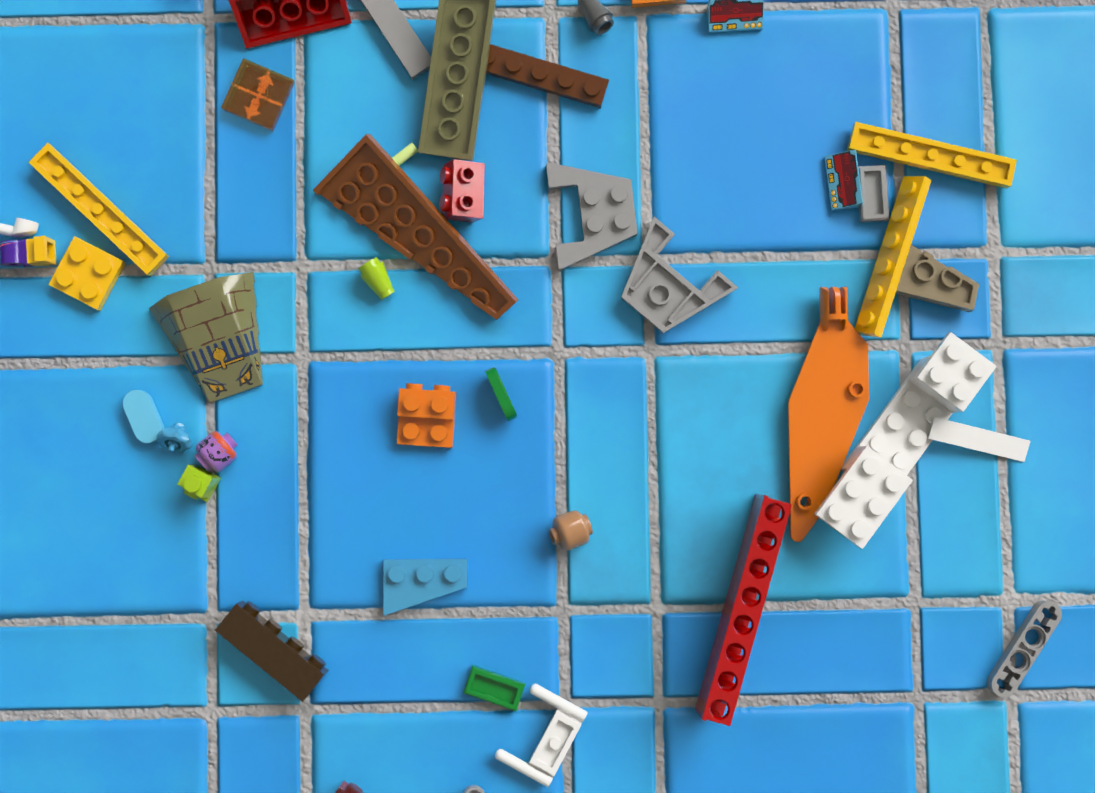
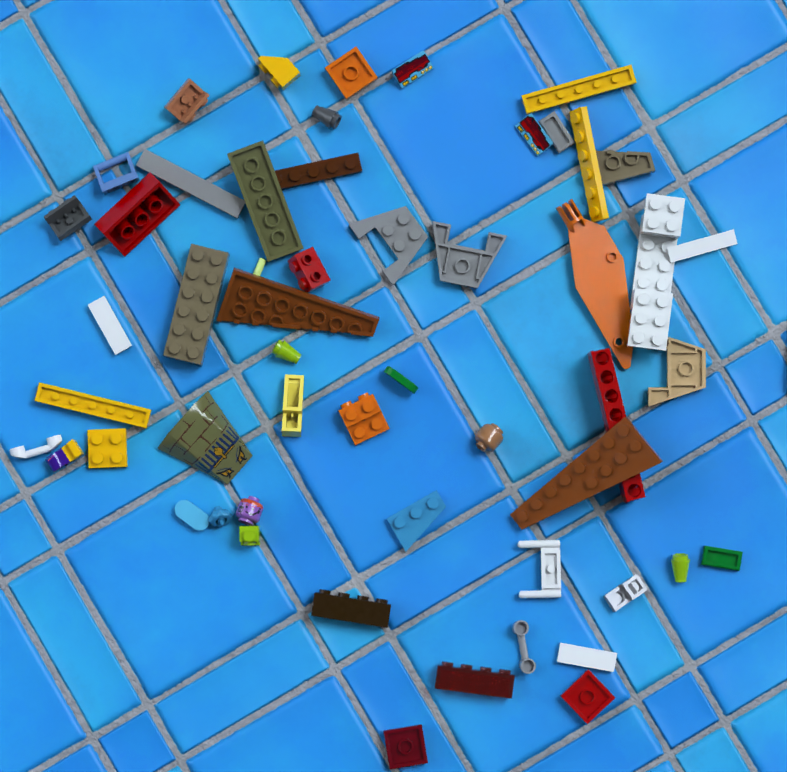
camera: 35 degrees left, 0 degrees up
(178, 122) = (110, 325): none -> white tile
(258, 94) = (148, 281): clear orange tile -> none
(298, 155) = (196, 304): none -> dark tan brick
(346, 350) = (292, 405): none -> light yellow slope
(494, 688) = (496, 557): green tile -> none
(702, 653) = (607, 462): none -> dark orange wing
(867, 587) = (684, 372): none -> tan wing

